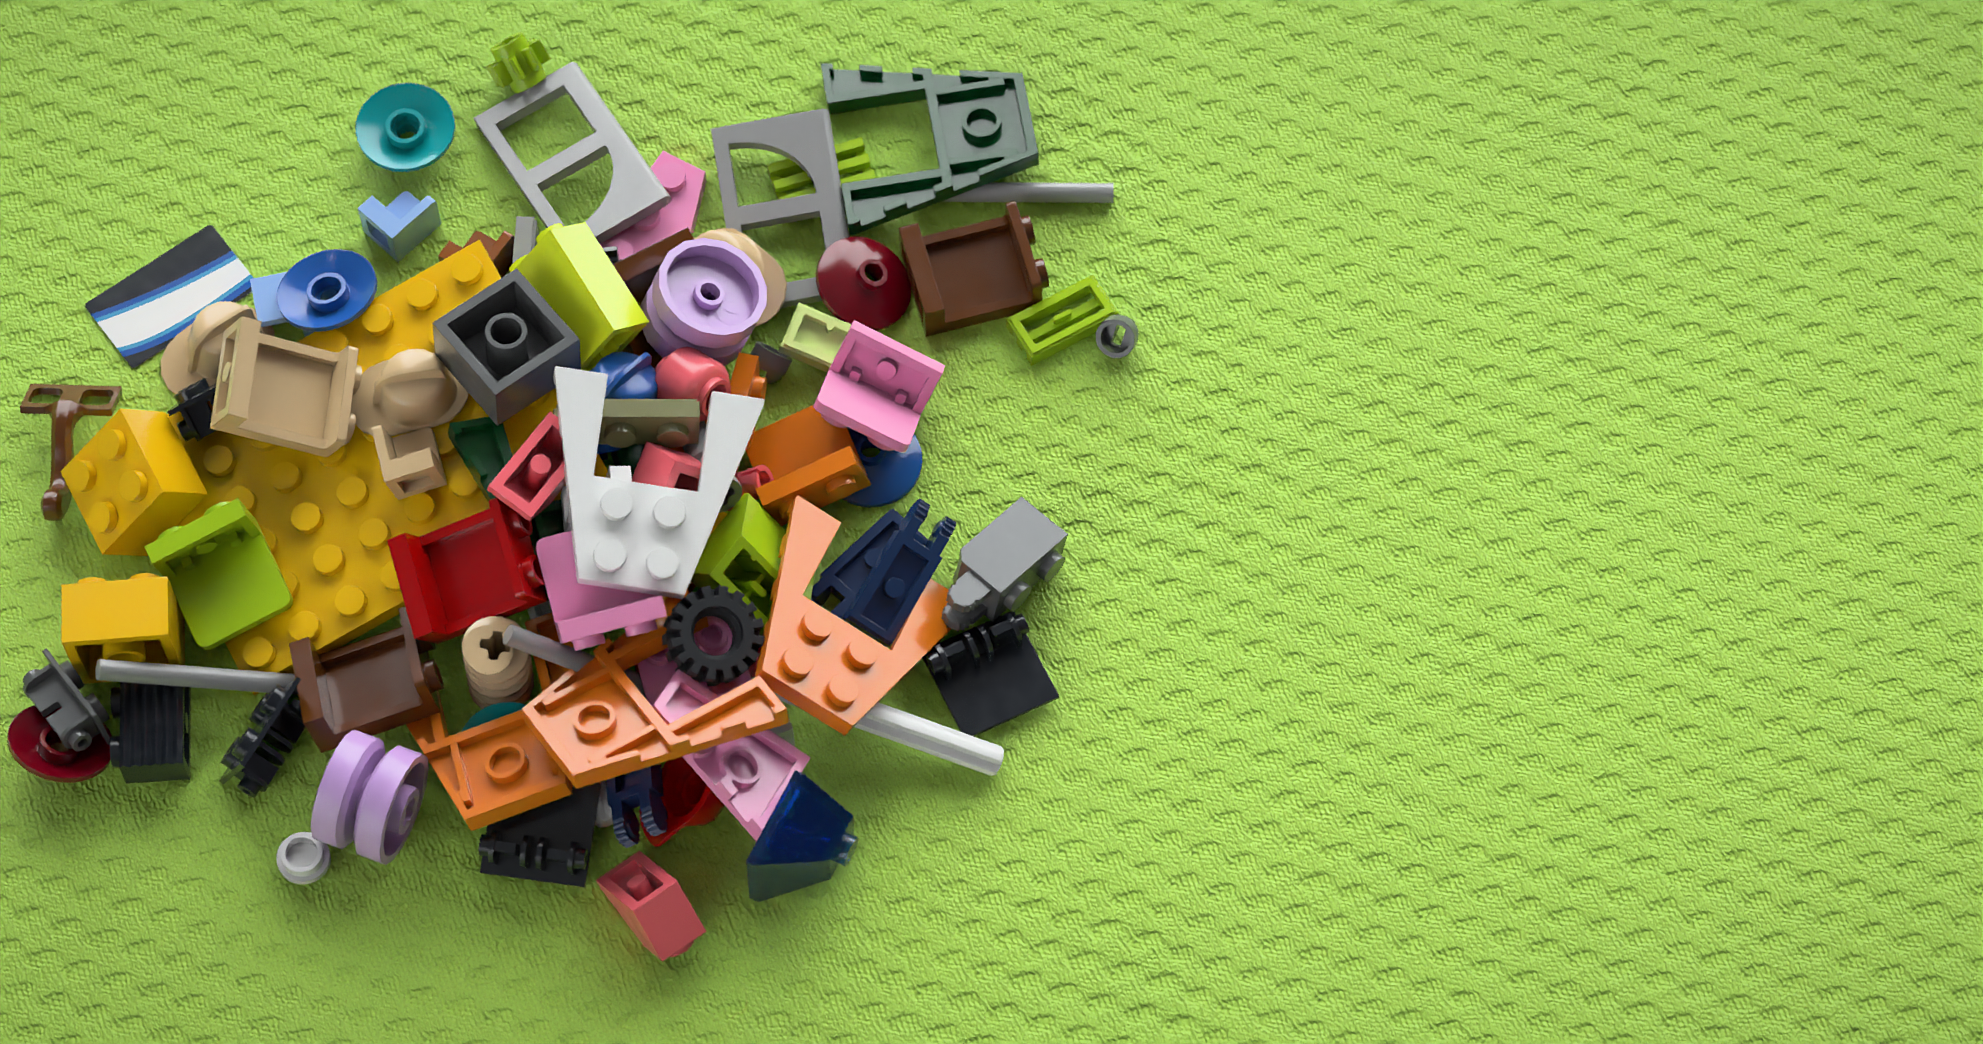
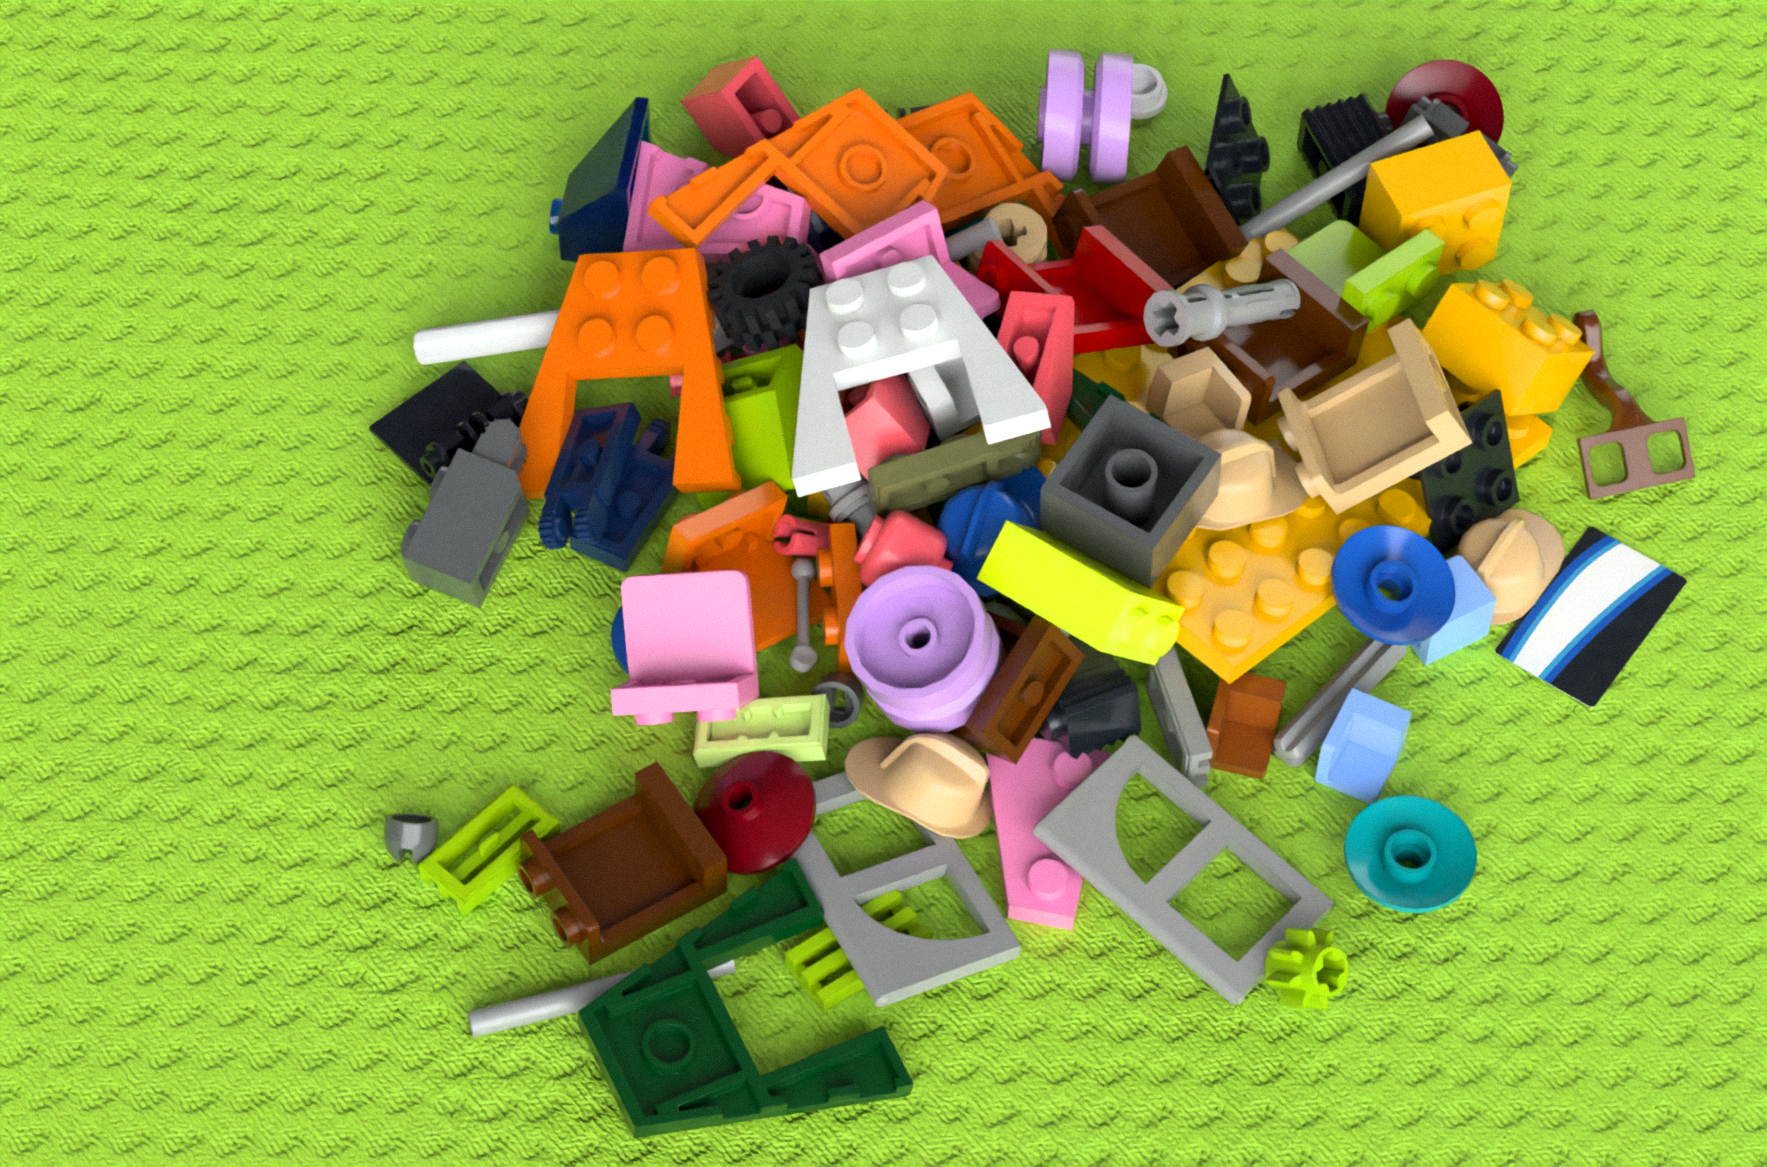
camera: 160 degrees right, 10 degrees down
(325, 521) = (1292, 351): none -> reddish brown panel
(376, 494) = (1206, 311): none -> light grey pin
(413, 259) = (1312, 723): none -> light grey axle
(785, 390) = (803, 656): none -> light grey hinge

